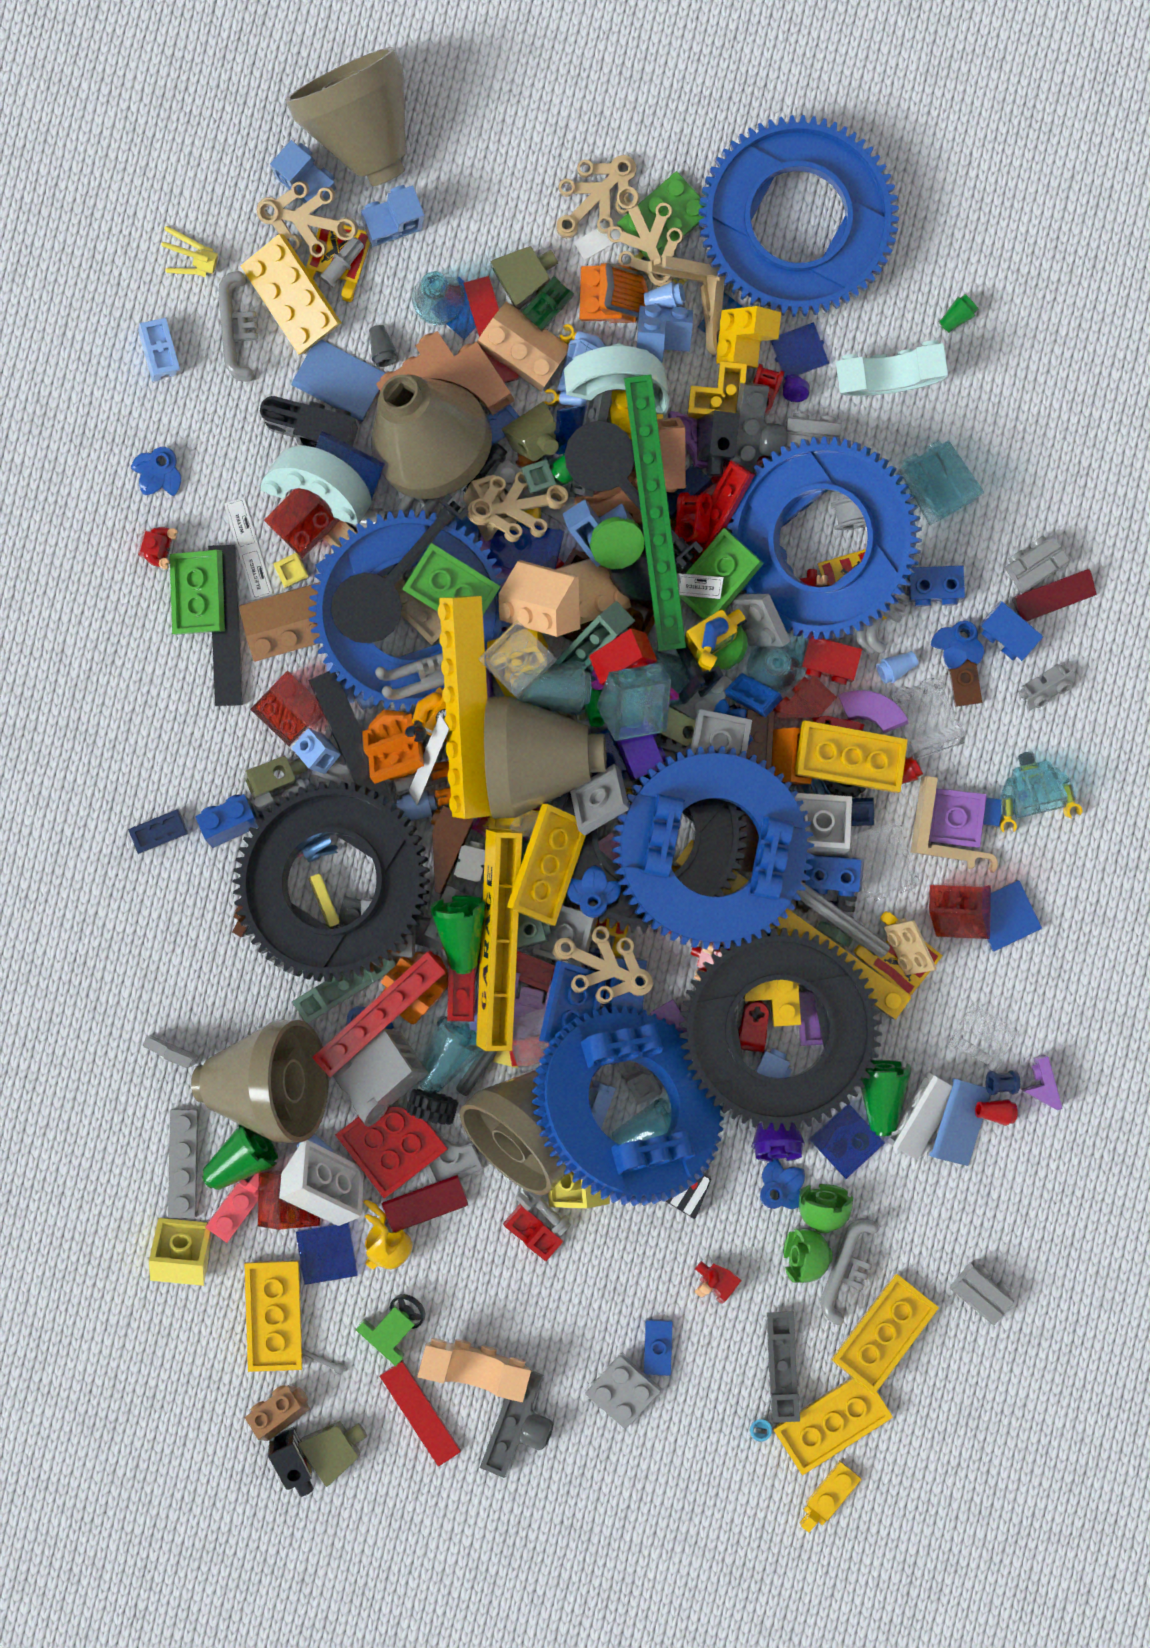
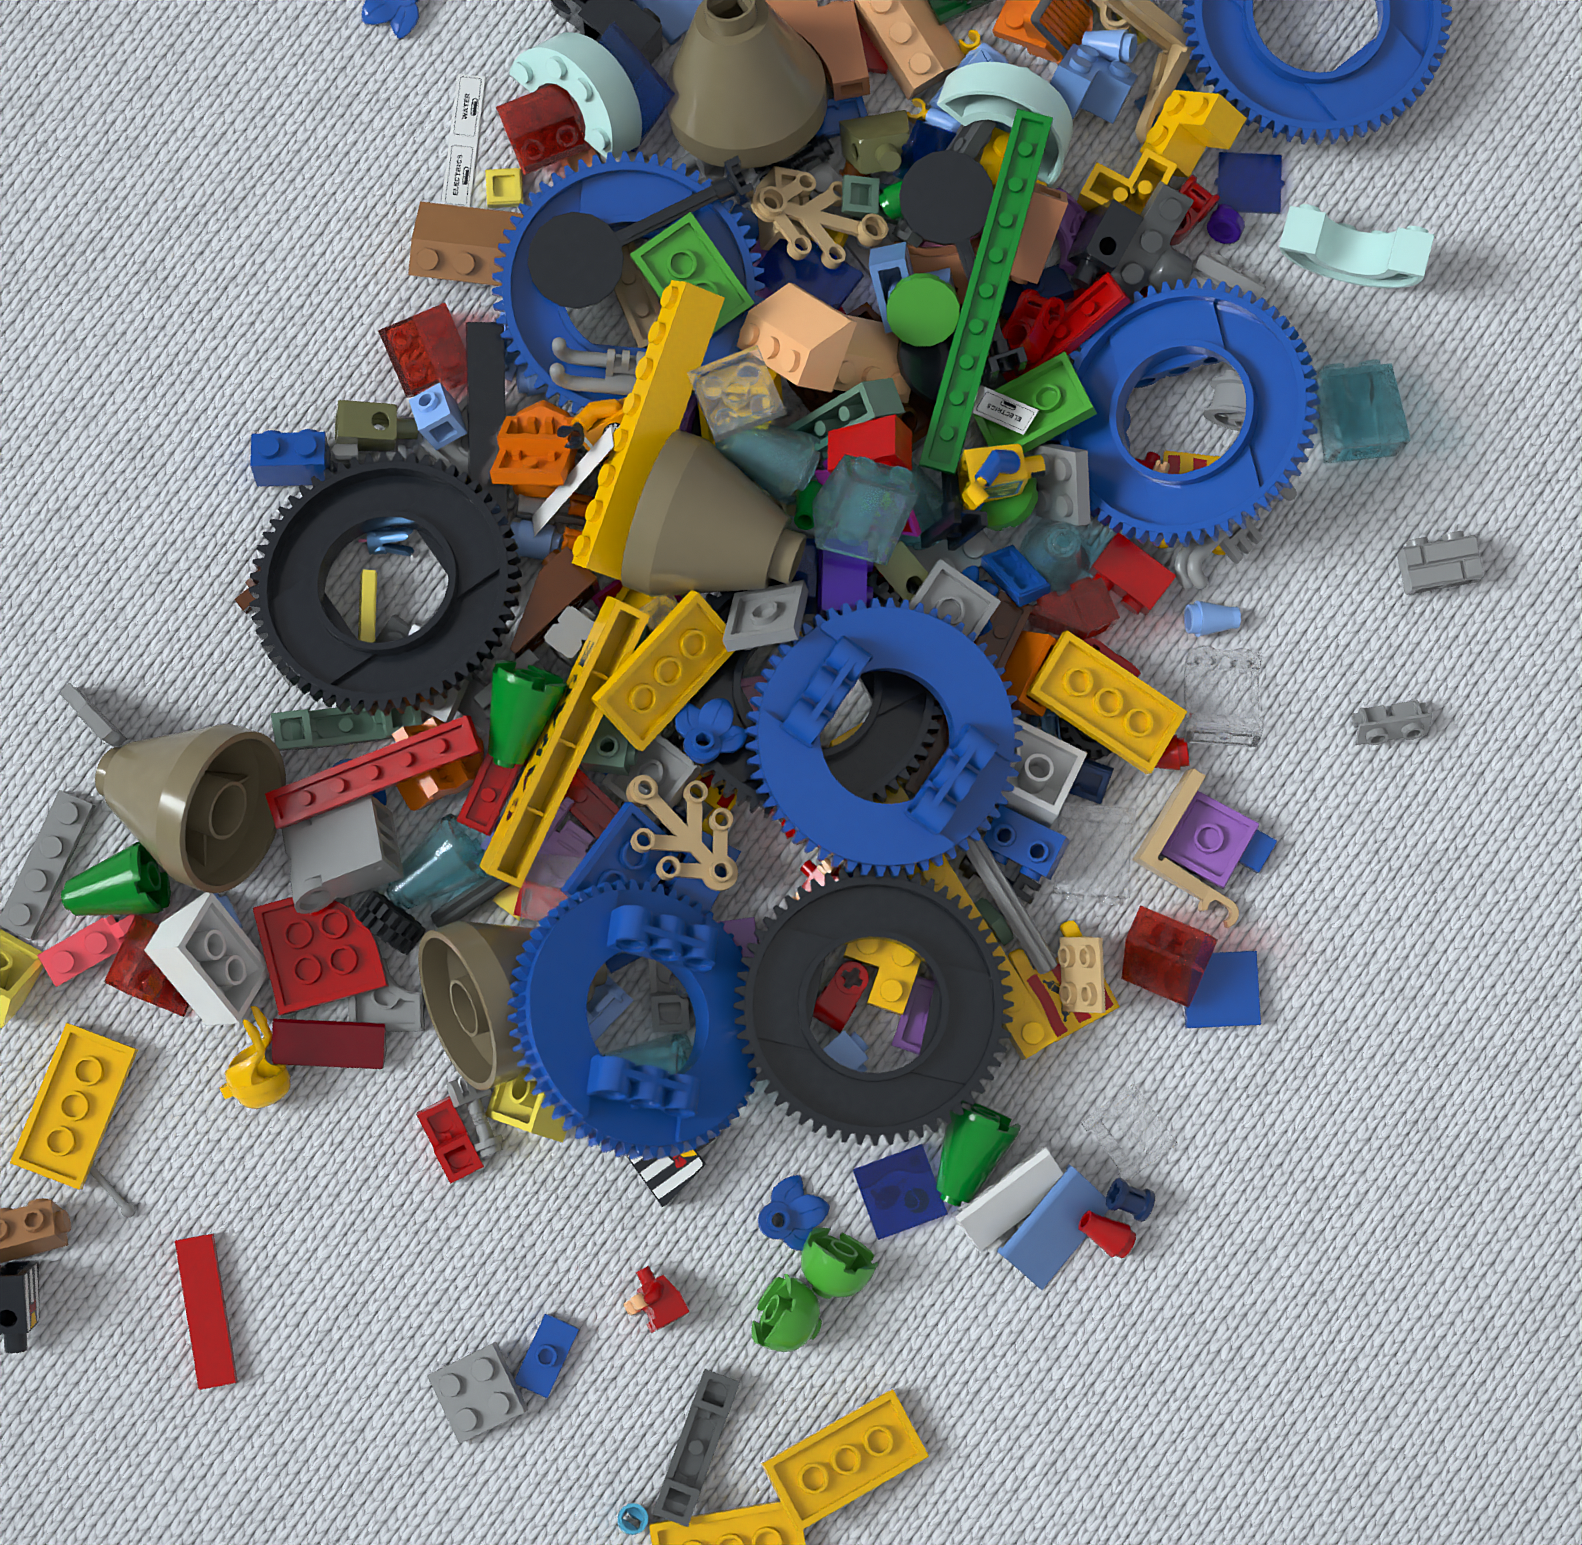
camera: 15 degrees right, 5 degrees down
(155, 546) = (351, 85): red piece -> none
(158, 831) = (198, 437): dark blue plate -> none
(197, 592) = (375, 164): bright green plate -> none
(227, 643) = (393, 221): black tile -> none
(326, 1253) = (177, 1055): clear blue tile -> none
(332, 1449) = (73, 1310): olive torso -> none
(393, 1327) = (218, 1184): bright green piece -> none
(475, 1367) = (298, 1278): light nougat brick -> none
(516, 1426) = (323, 1376): dark grey plate -> none
(777, 1144) = (810, 1154): dark purple cone -> none
(846, 1268) = (830, 1355): light grey piece -> none
(873, 707) = (1161, 657): medium lavender tile -> none
(936, 584) = (1302, 537): blue brick -> none
(958, 313) = (1467, 217): green cone -> none
(958, 648) = (1297, 626): blue plate -> none
(965, 684) = (1290, 669): reddish brown plate -> none
(981, 1293) = (992, 1461): light grey brick -> none
(1011, 631) = (1372, 632): blue brick -> none
(1036, 790) = (1324, 845): clear light blue torso -> none
(1047, 1090) = (1183, 1235): medium lavender slope -> none
(1055, 595) = (1446, 613): dark red slope -> none

